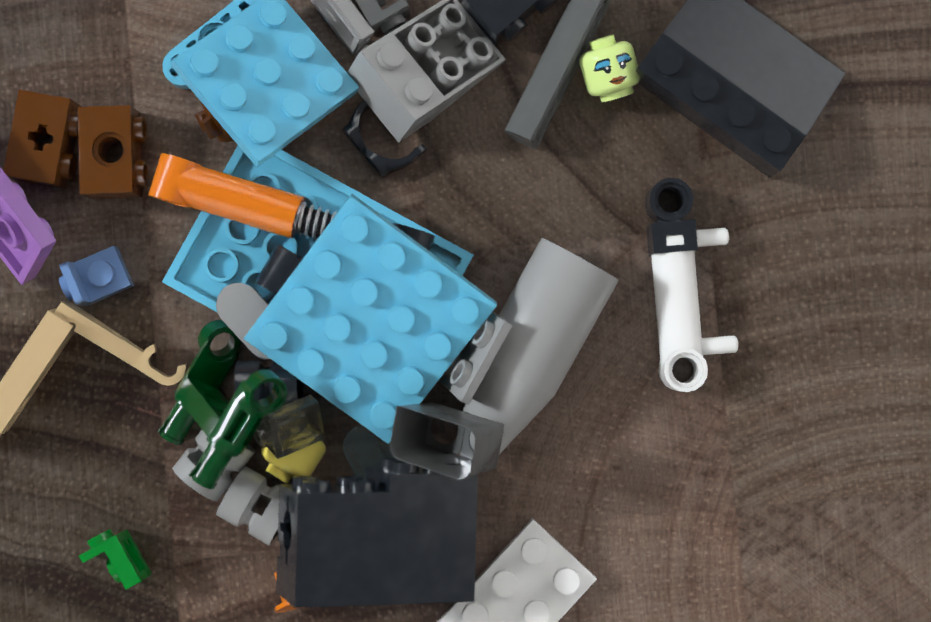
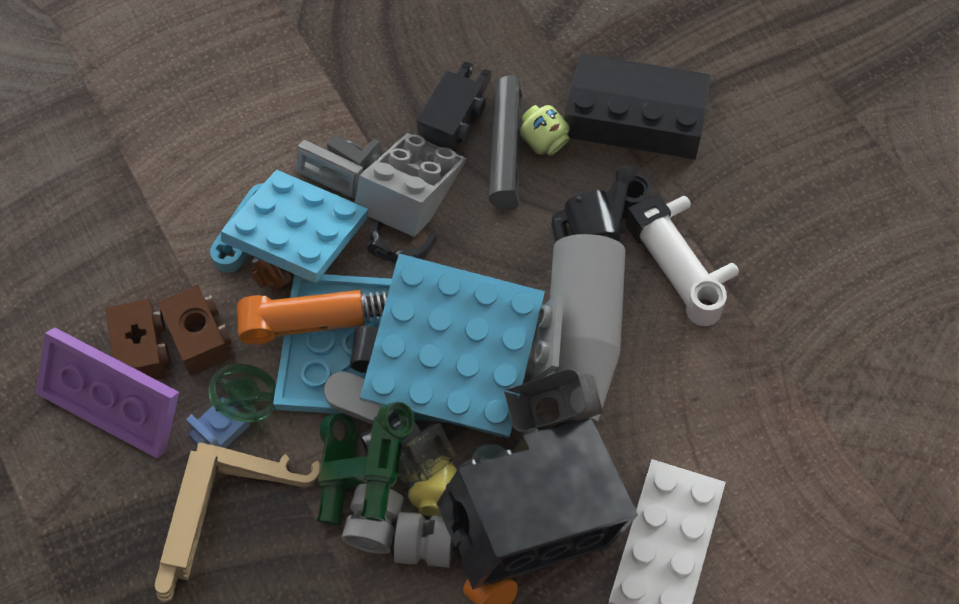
camera: 25 degrees left, 25 degrees down
(134, 252) = (242, 392): none -> clear green wheel
(608, 214) = (595, 210): none -> black piece

